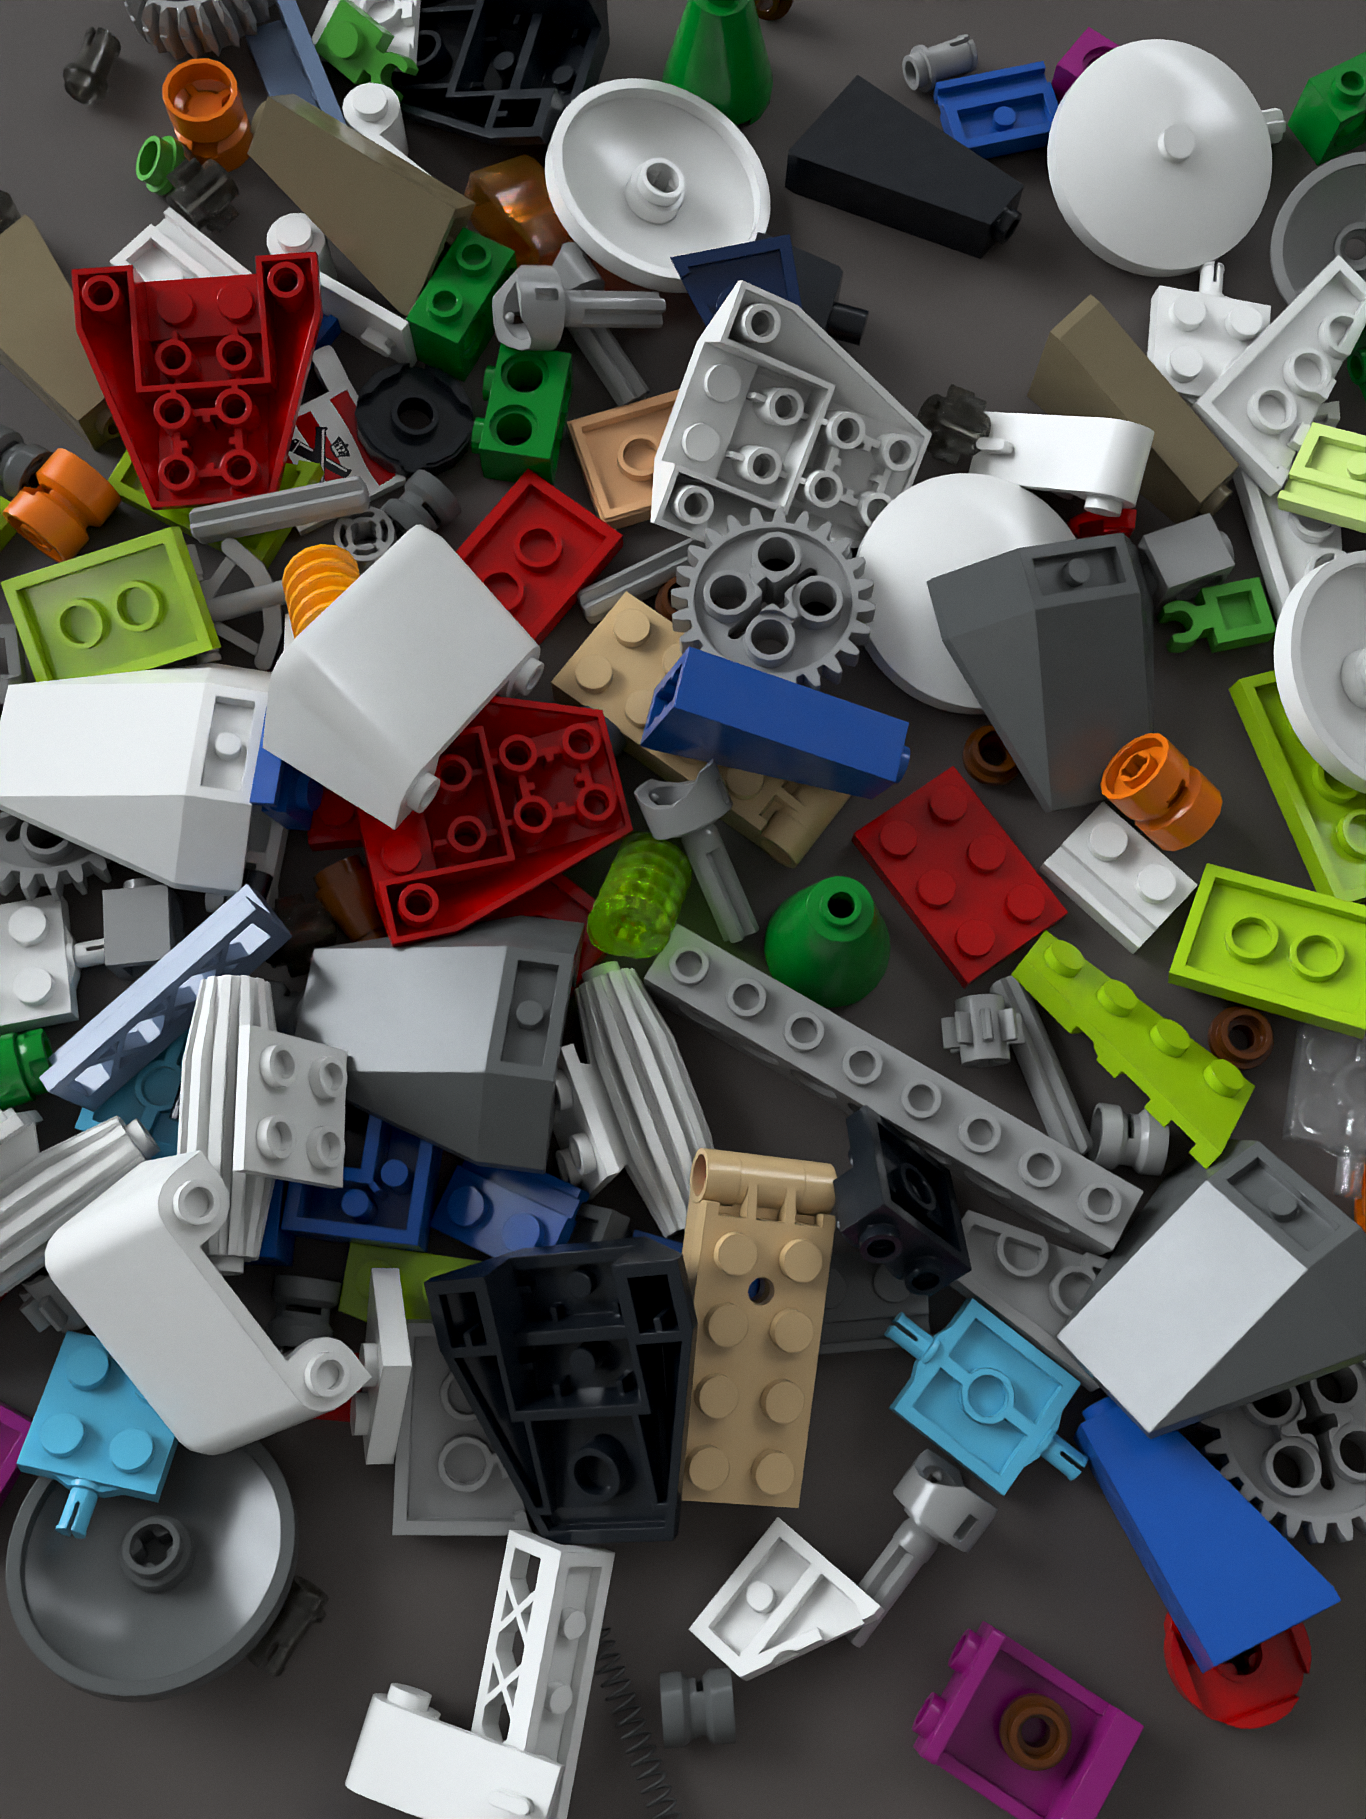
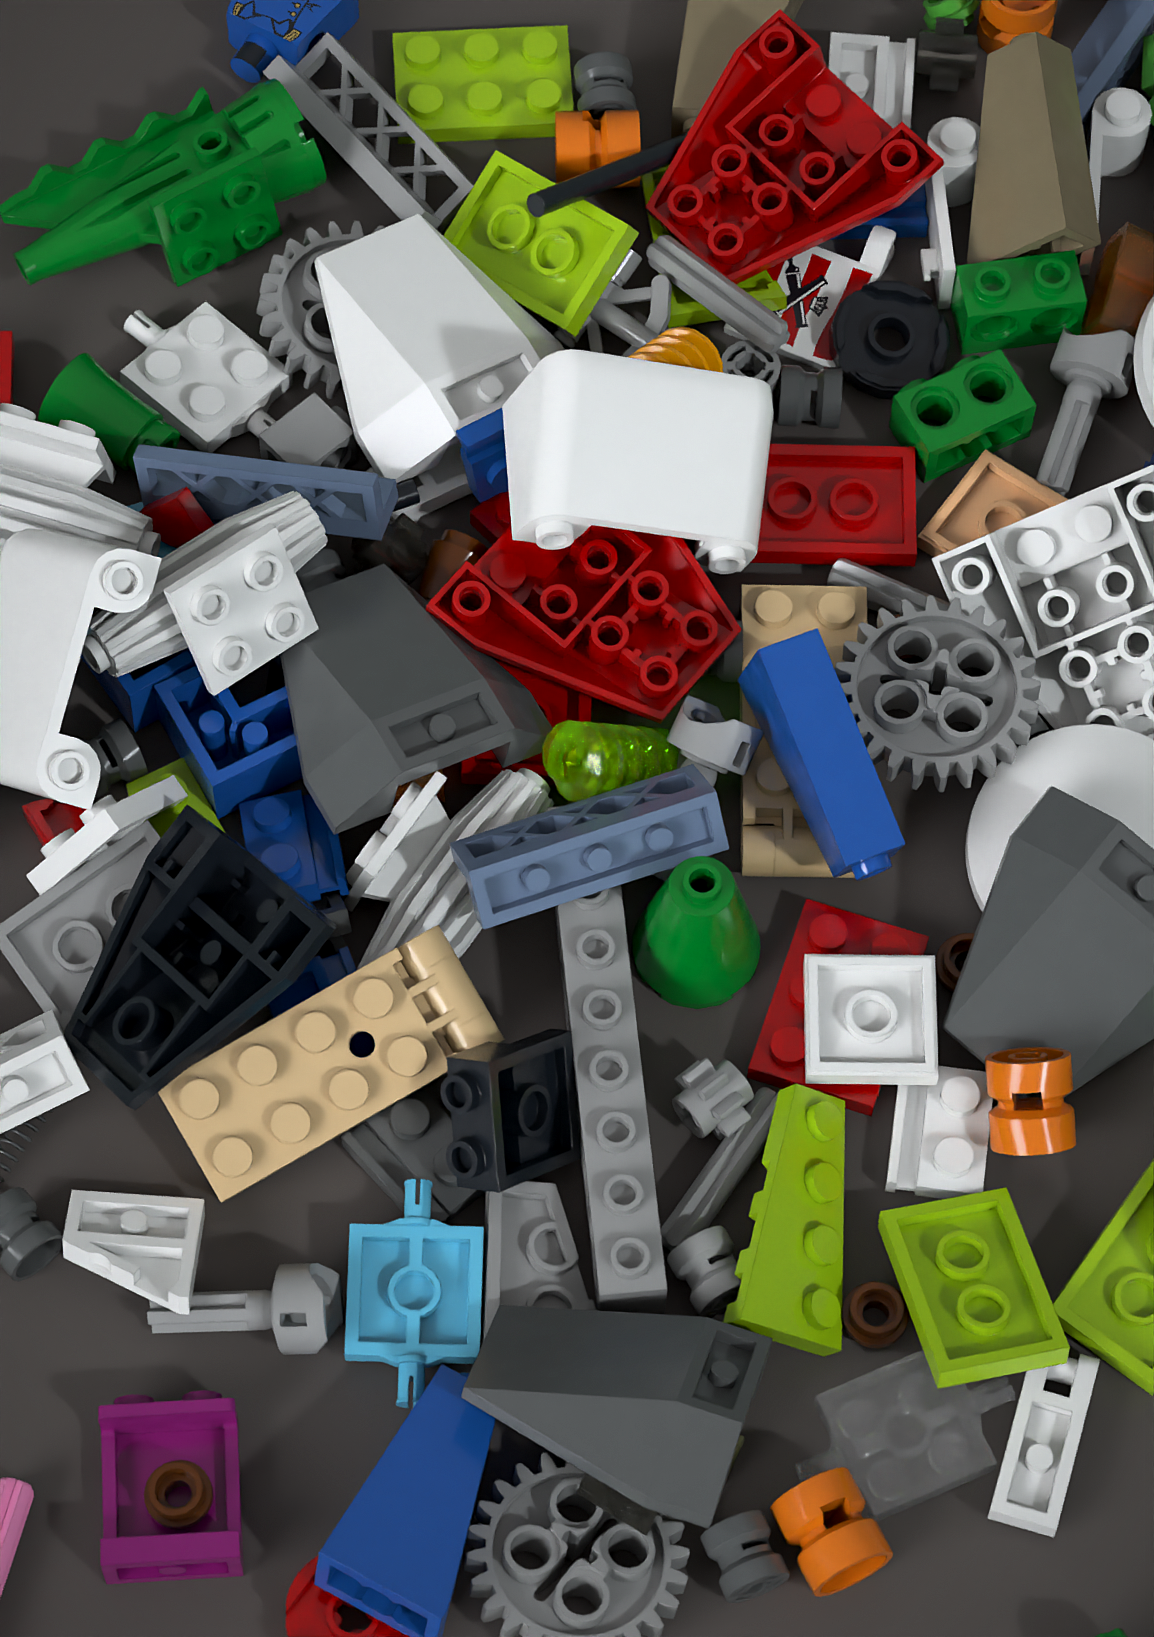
camera: 55 degrees right, 10 degrees down
(105, 513) = (604, 177): none -> black bar
(135, 1090) = (177, 517): none -> red tile
(546, 308) = (1042, 347): light grey piece -> none
(728, 966) = (590, 845): none -> sand blue fence
(1003, 861) = (870, 1019): none -> white tile

